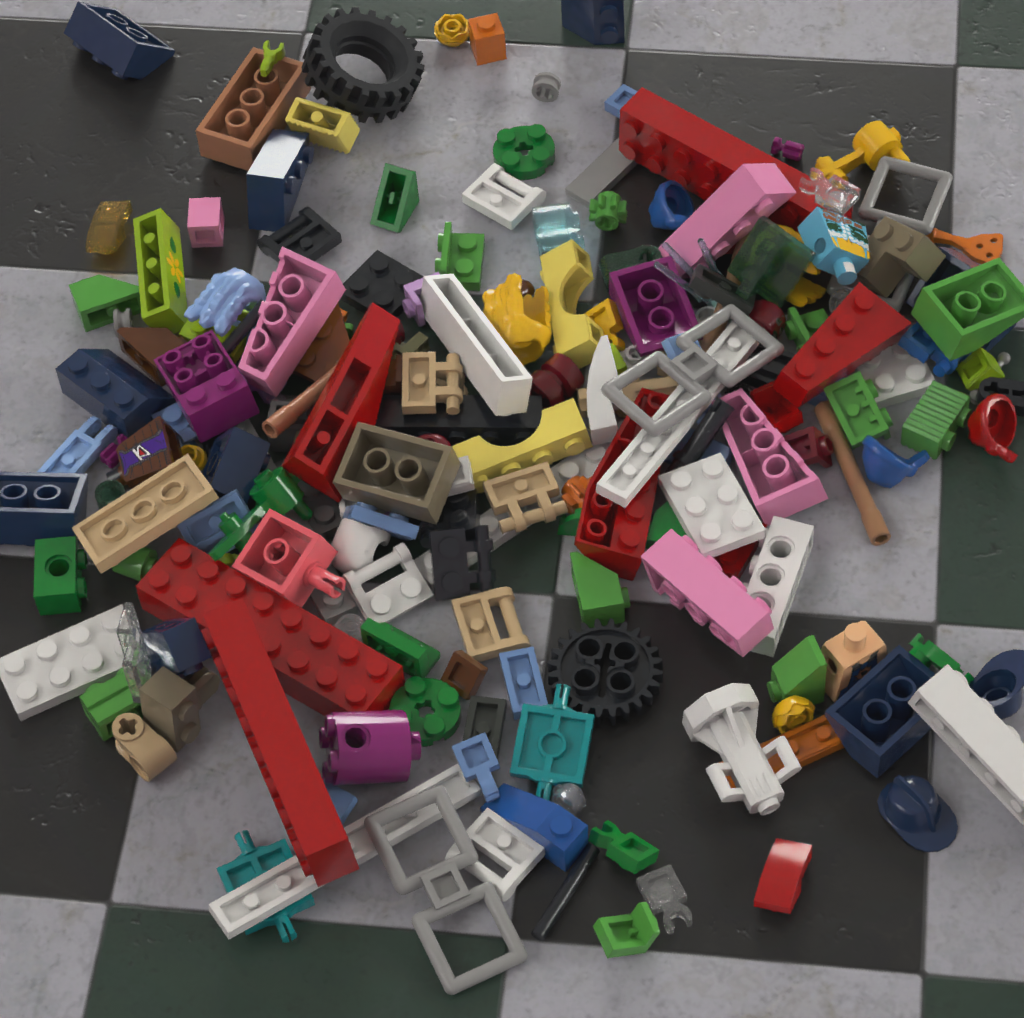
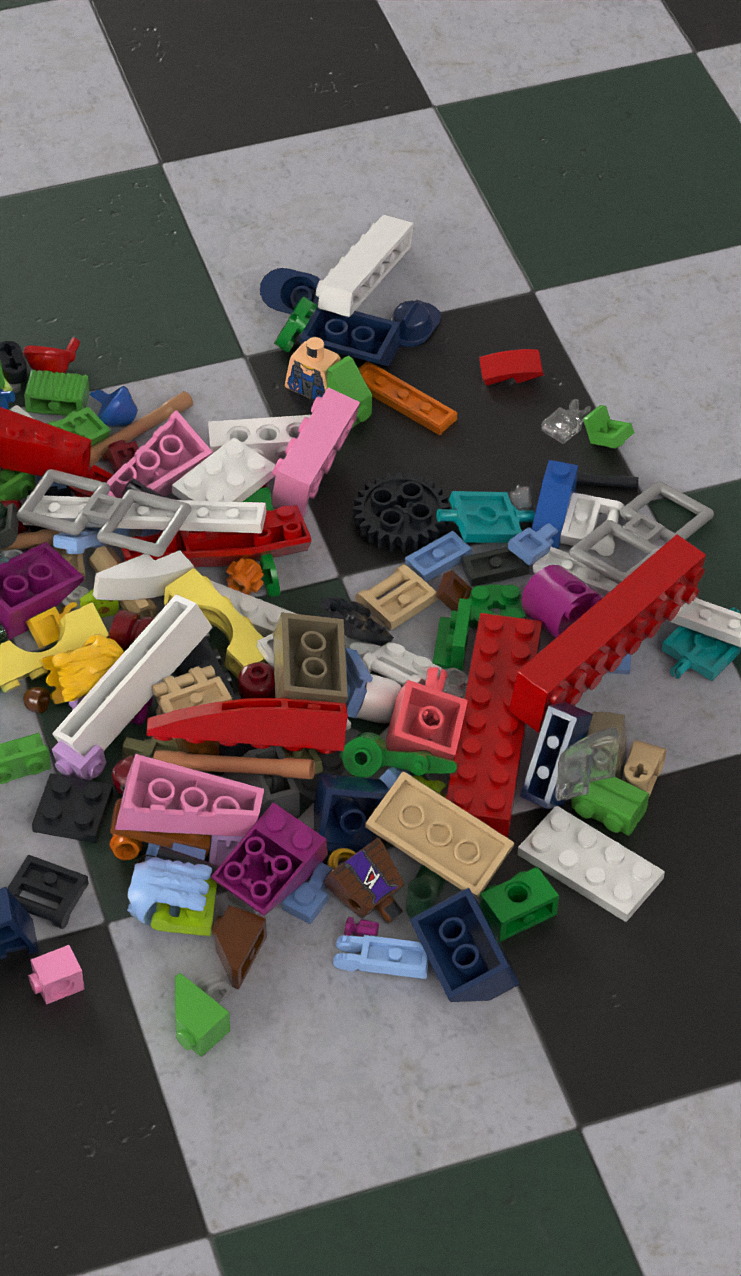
camera: 120 degrees left, 5 degrees down
(107, 227) = (97, 1057): clear yellow slope -> none
(111, 389) = (296, 957): dark blue slope -> none
(160, 271) = (145, 973): lime brick -> none
(521, 489) = (263, 602): tan plate -> none
(597, 591) = (333, 539): bright green slope -> none
(625, 849) = (542, 449): green plate -> none
(728, 725) = (413, 420): white piece -> none
(792, 713) = (382, 394): yellow plate -> none

